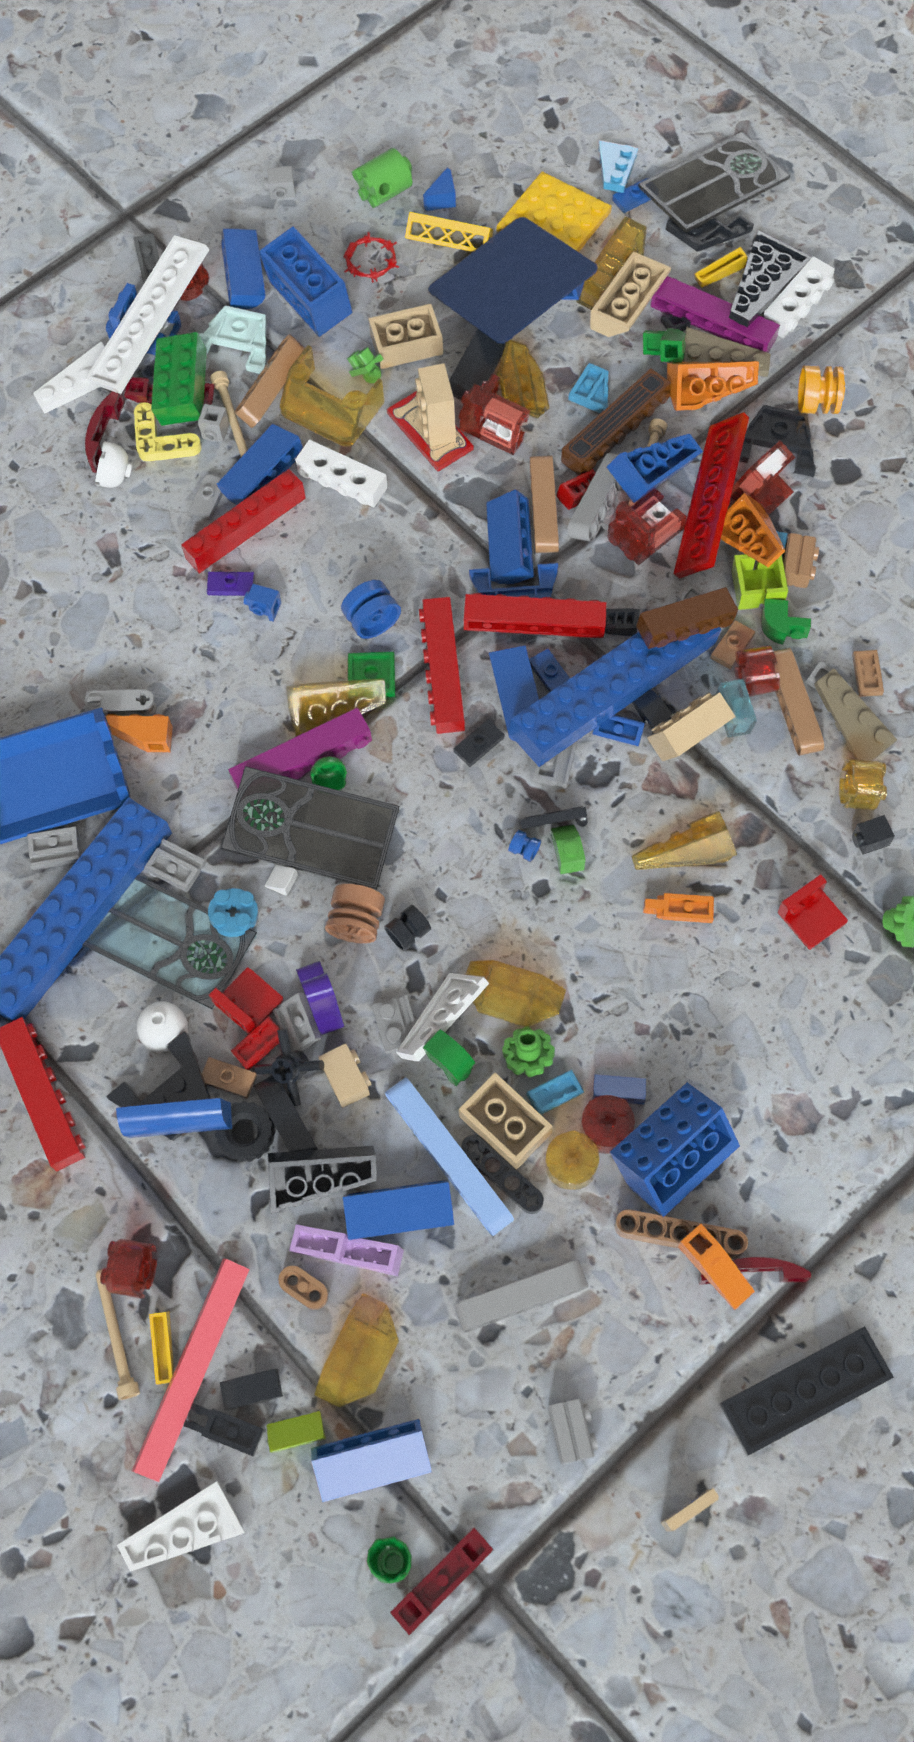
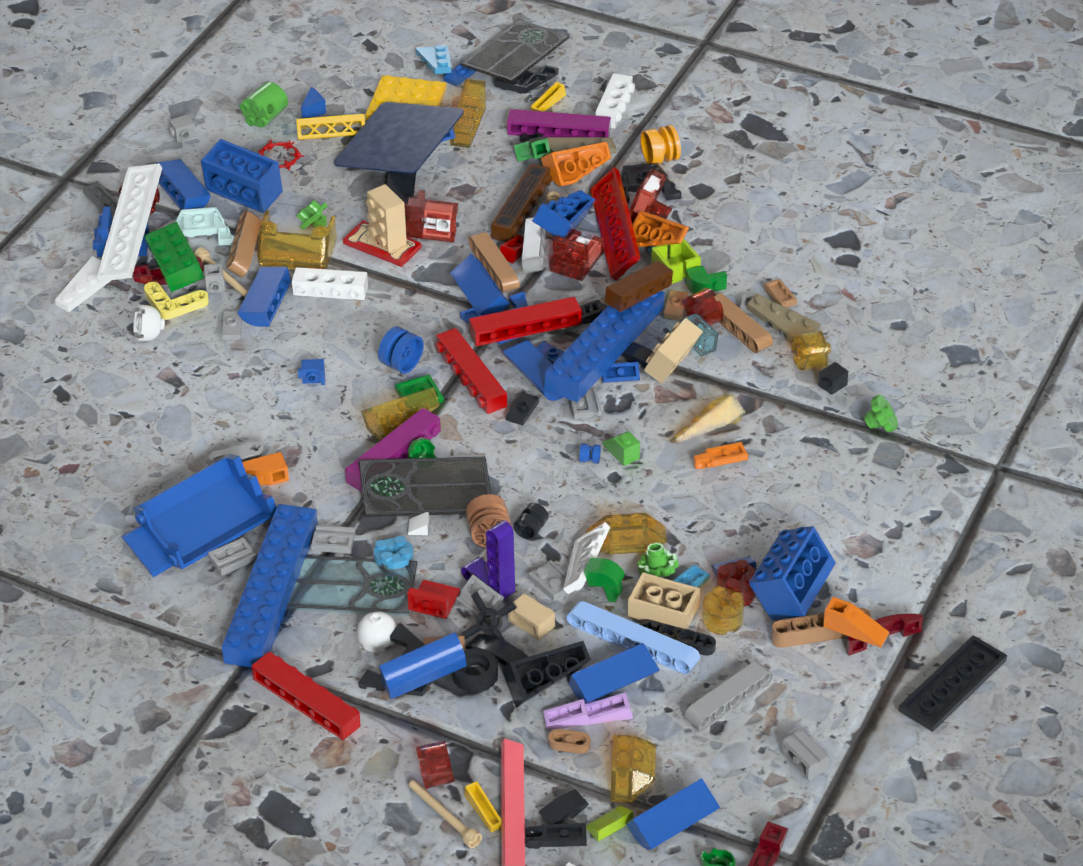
camera: 25 degrees left, 25 degrees down
(108, 409) = (123, 295): dark red slope -> none
(229, 583) = (279, 370): dark purple plate -> none
(243, 521) = (270, 329): red brick -> none
(257, 1044) = (456, 618): red plate -> none
(406, 336) = (337, 189): tan brick -> none
(522, 379) = (434, 189): clear yellow wedge -> none
(576, 813) = (617, 425): black hinge -> none
(591, 389) = (492, 189): dark azure wing -> none
(627, 295) = (490, 127): tan slope -> none
(690, 1510) = (909, 761): tan tile -> none
(766, 275) = (584, 93): wing -> none
(798, 560) = (700, 243): medium nougat brick -> none
(812, 913) = (812, 432): red bracket -> none

